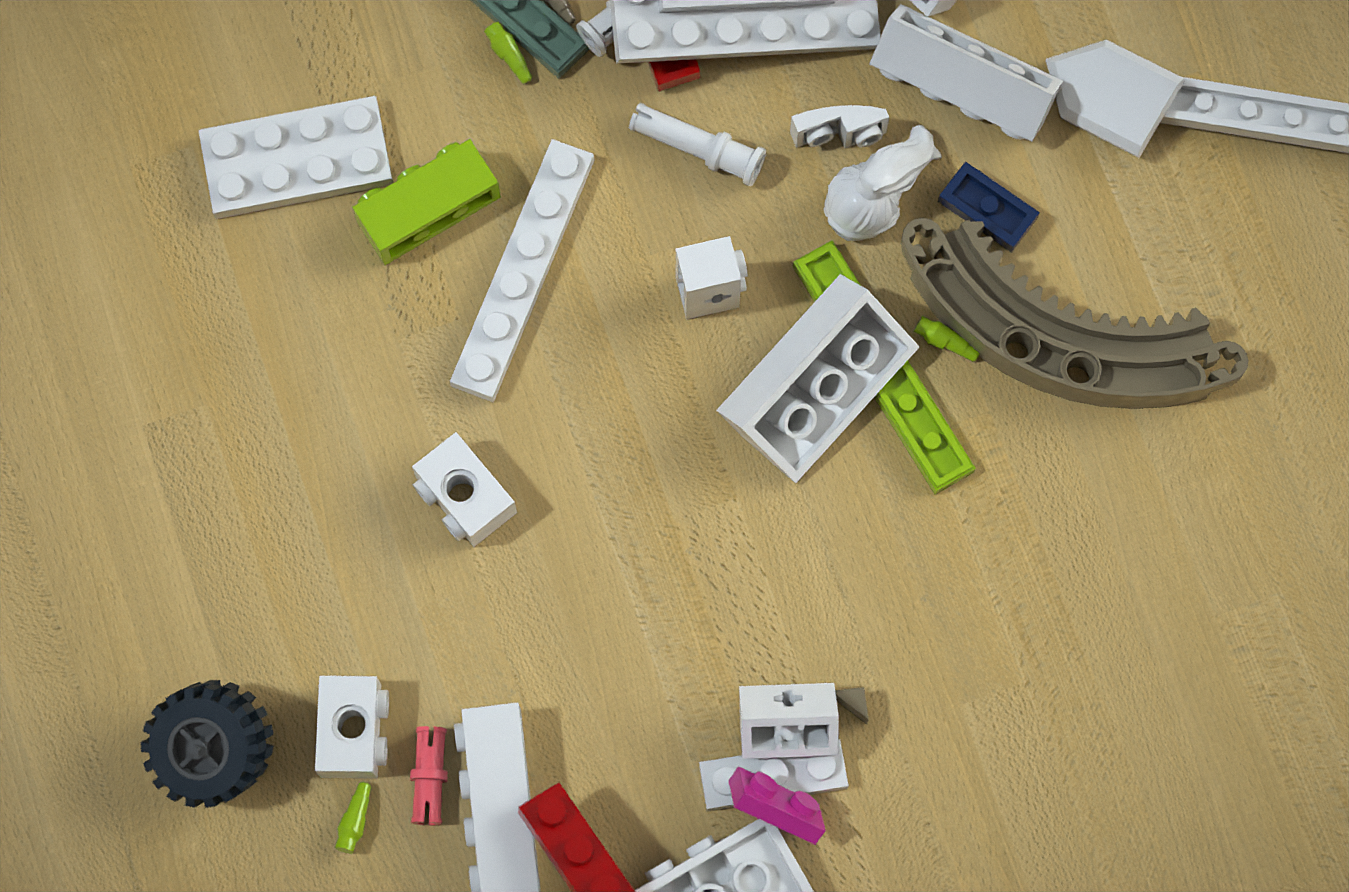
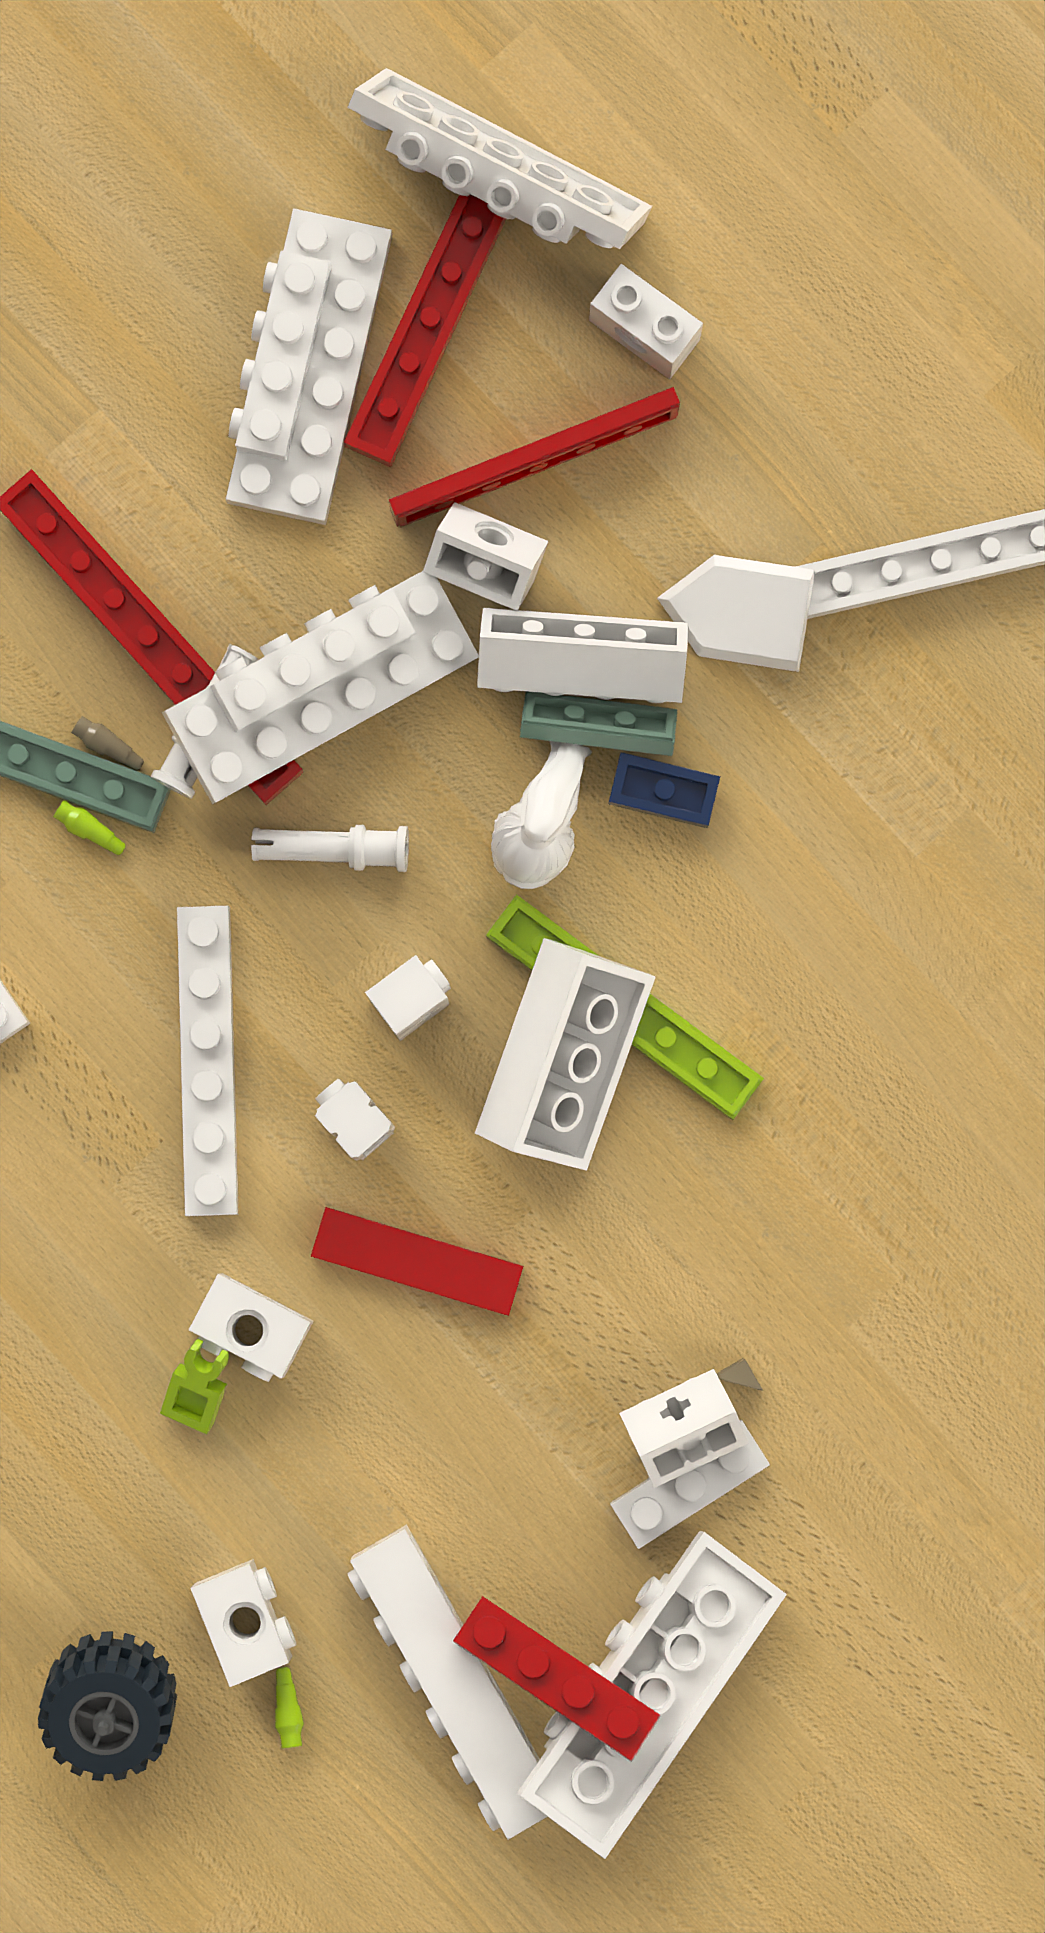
camera: 25 degrees left, 10 degrees up
(393, 521) = (194, 1390): none -> lime plate
(426, 200) = (73, 1032): lime brick -> none
(428, 775) = (344, 1635): coral pin -> none
(622, 355) = (353, 1119): none -> white brick
(624, 498) = (417, 1261): none -> red tile
(776, 805) = (708, 1521): dark pink plate -> none
(852, 122) = (487, 760): white slope -> none
(943, 337) = (673, 950): lime piece -> none
(957, 133) = (599, 723): none -> sand green tile
(1124, 363) = (868, 903): dark tan gear -> none

